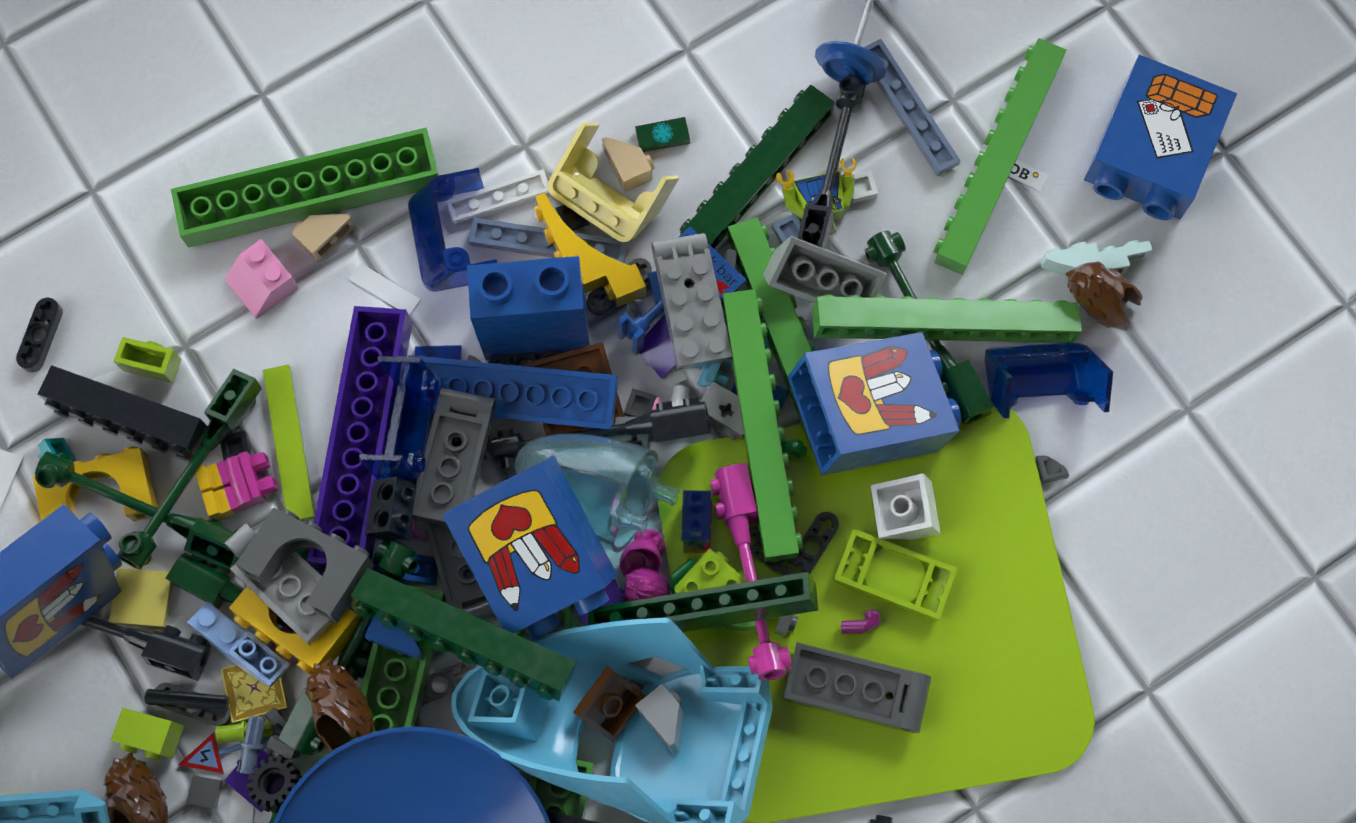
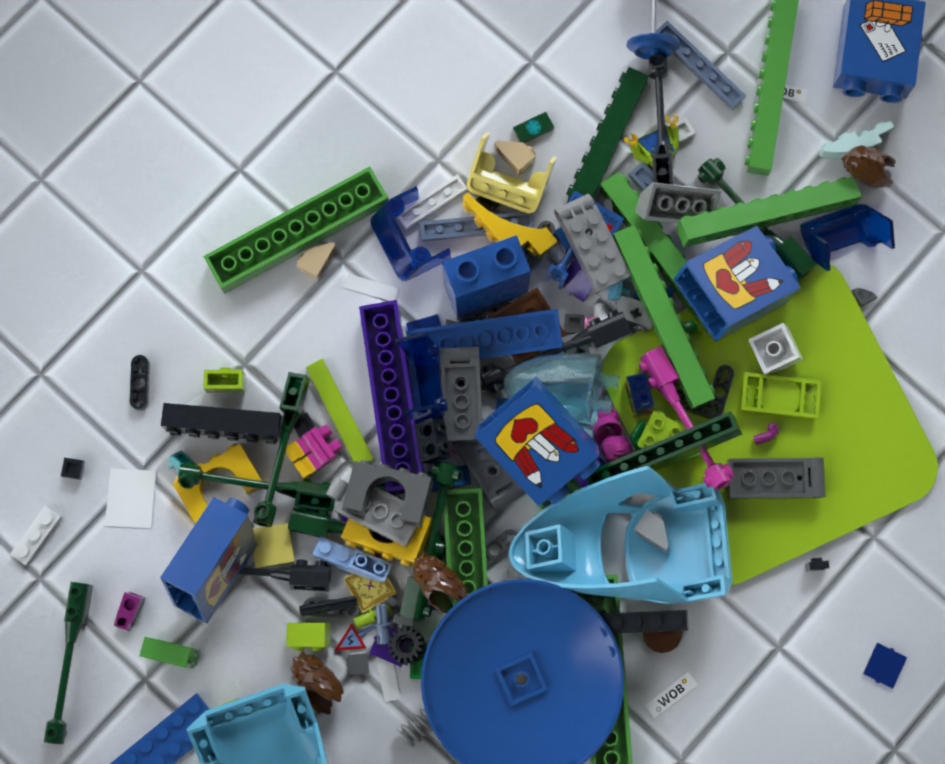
camera: 15 degrees left, 5 degrees up
(260, 279) = (283, 303): bright pink slope -> none
(393, 639) = (459, 523): blue slope -> none
(462, 635) = (509, 513): dark green brick -> none
(609, 704) = (616, 533): reddish brown plate -> none
(785, 624) = (717, 450): dark grey plate -> none

